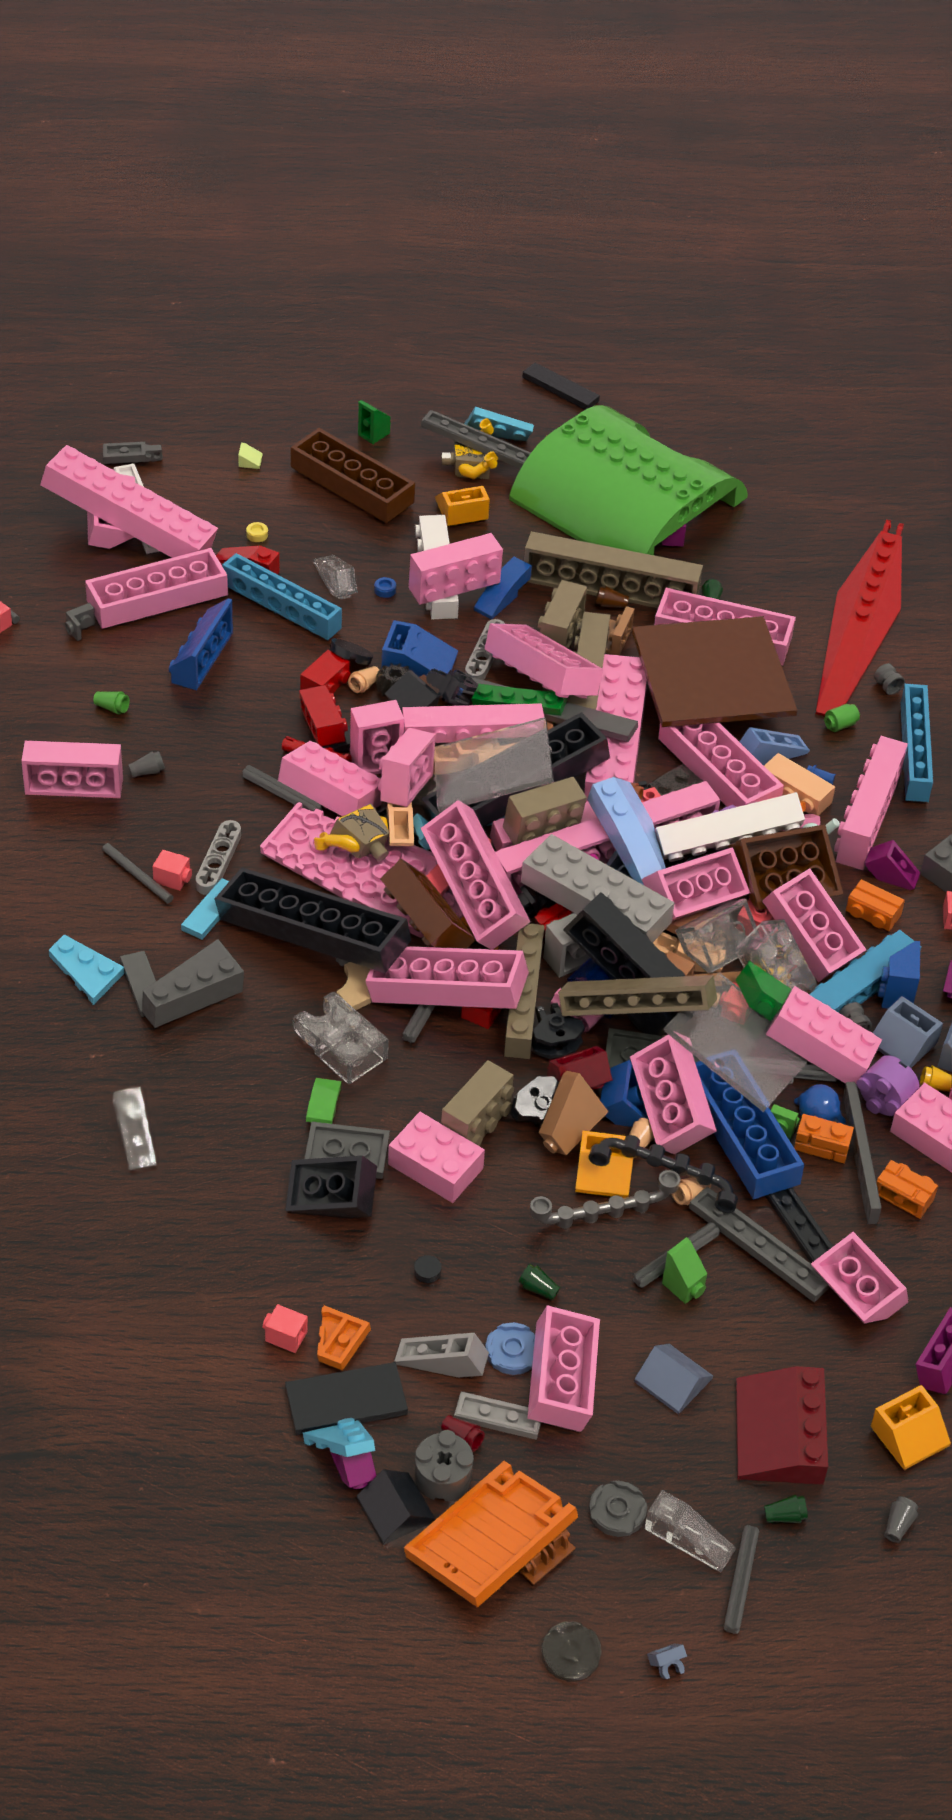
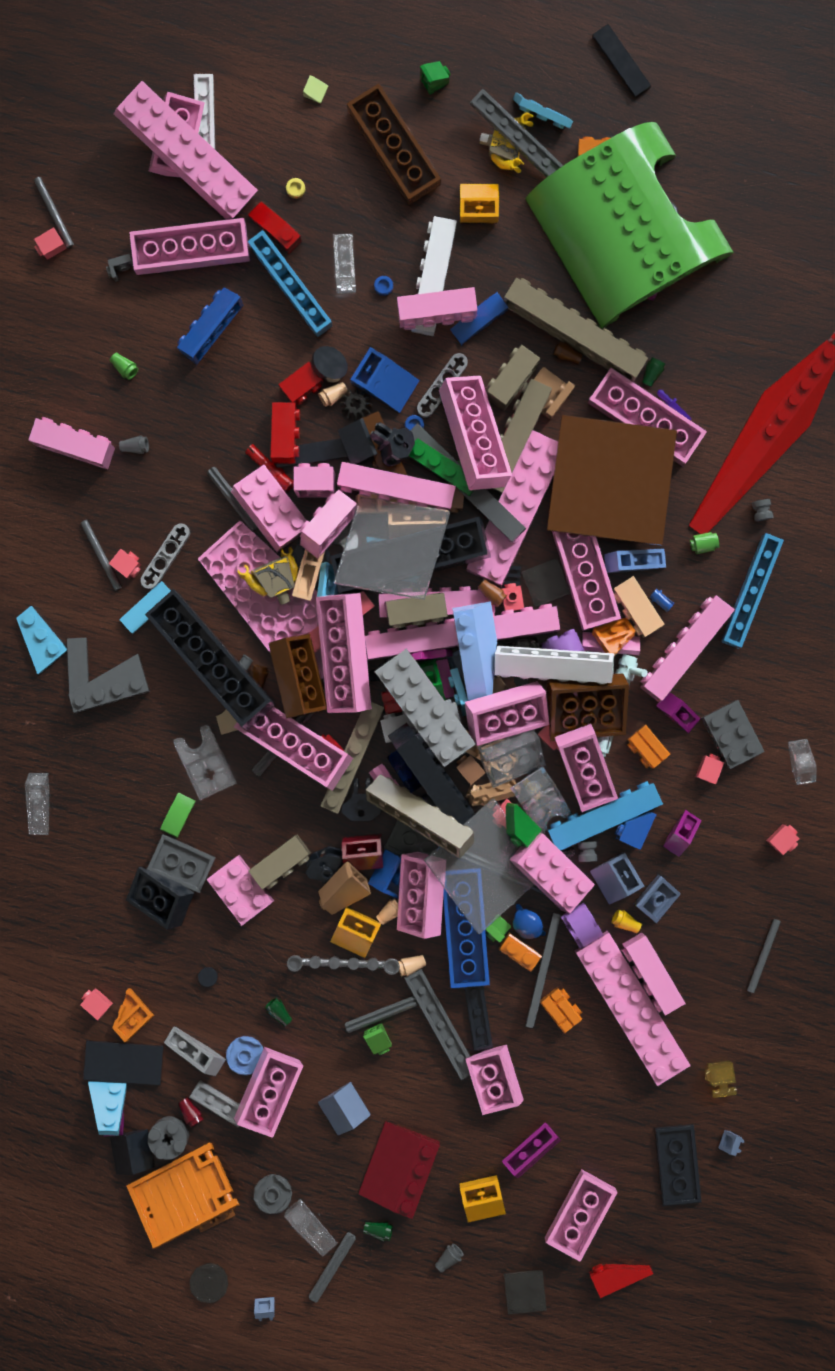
camera: 25 degrees right, 40 degrees up
(131, 452) = (212, 58): dark grey hinge -> none
(655, 1156) = (388, 947): black bar -> none

